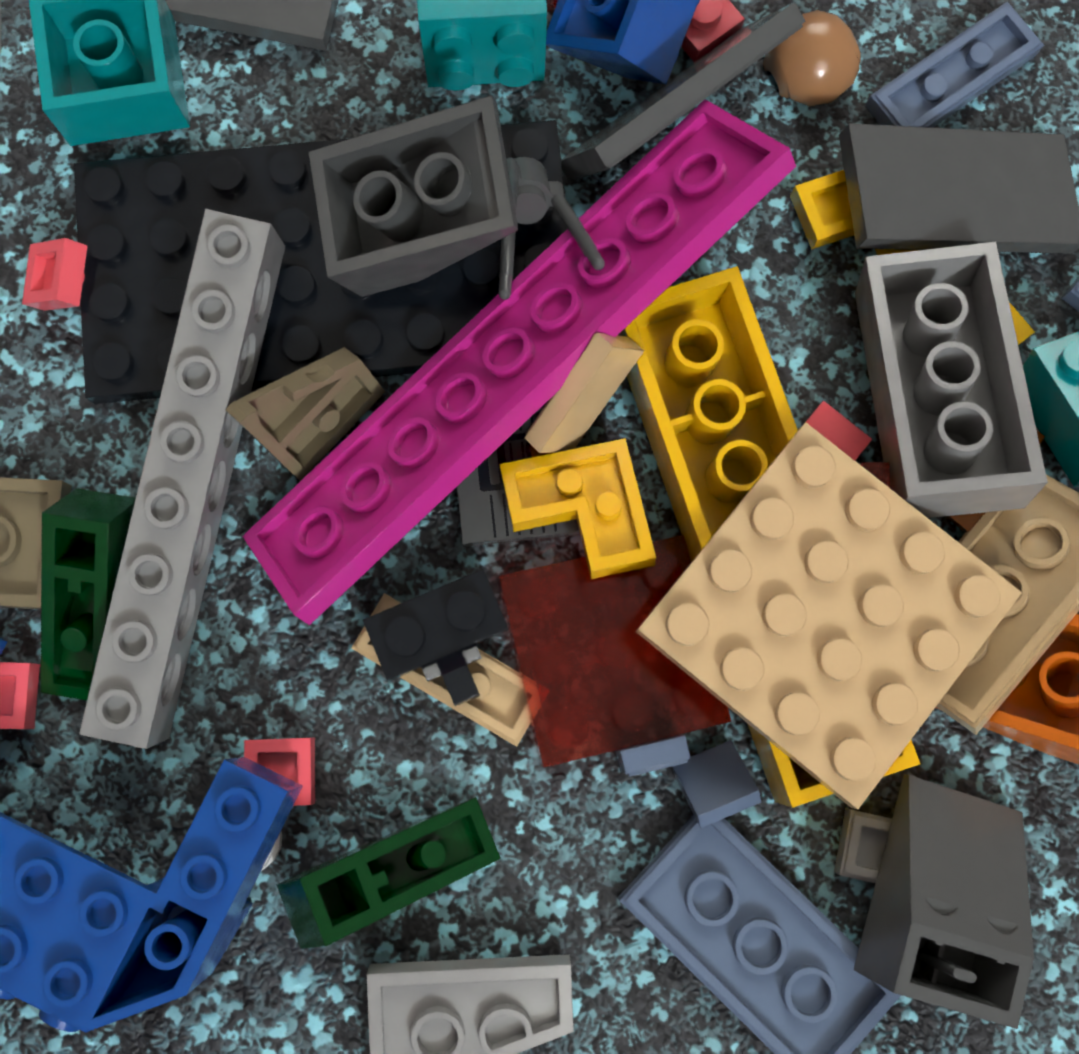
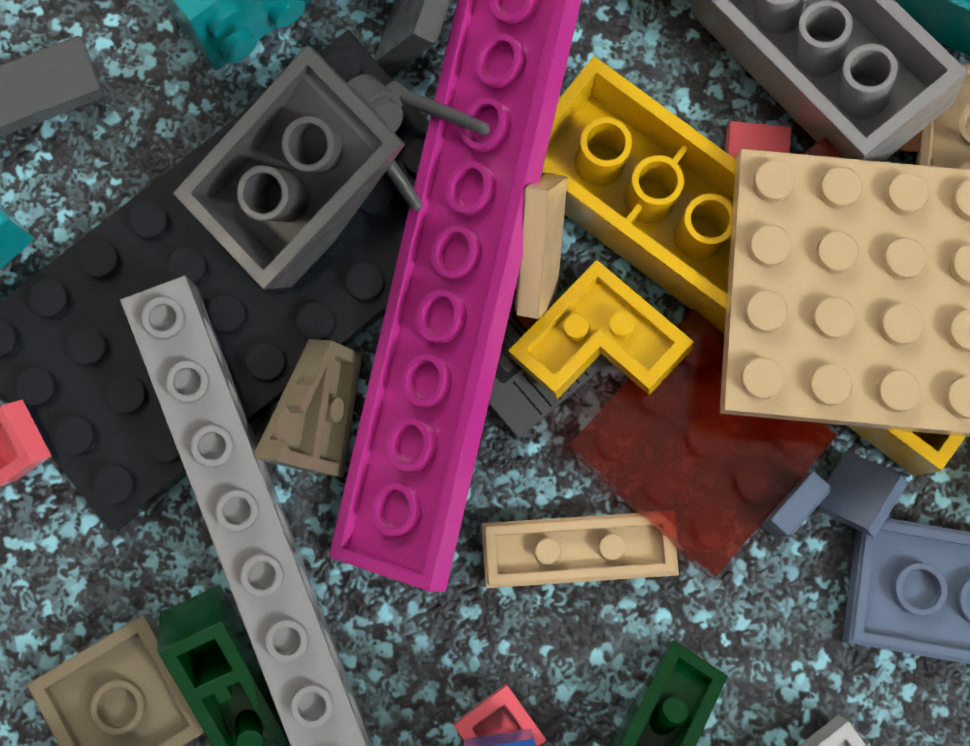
camera: 30 degrees left, 0 degrees up
(439, 633) = (554, 525): black hinge -> none

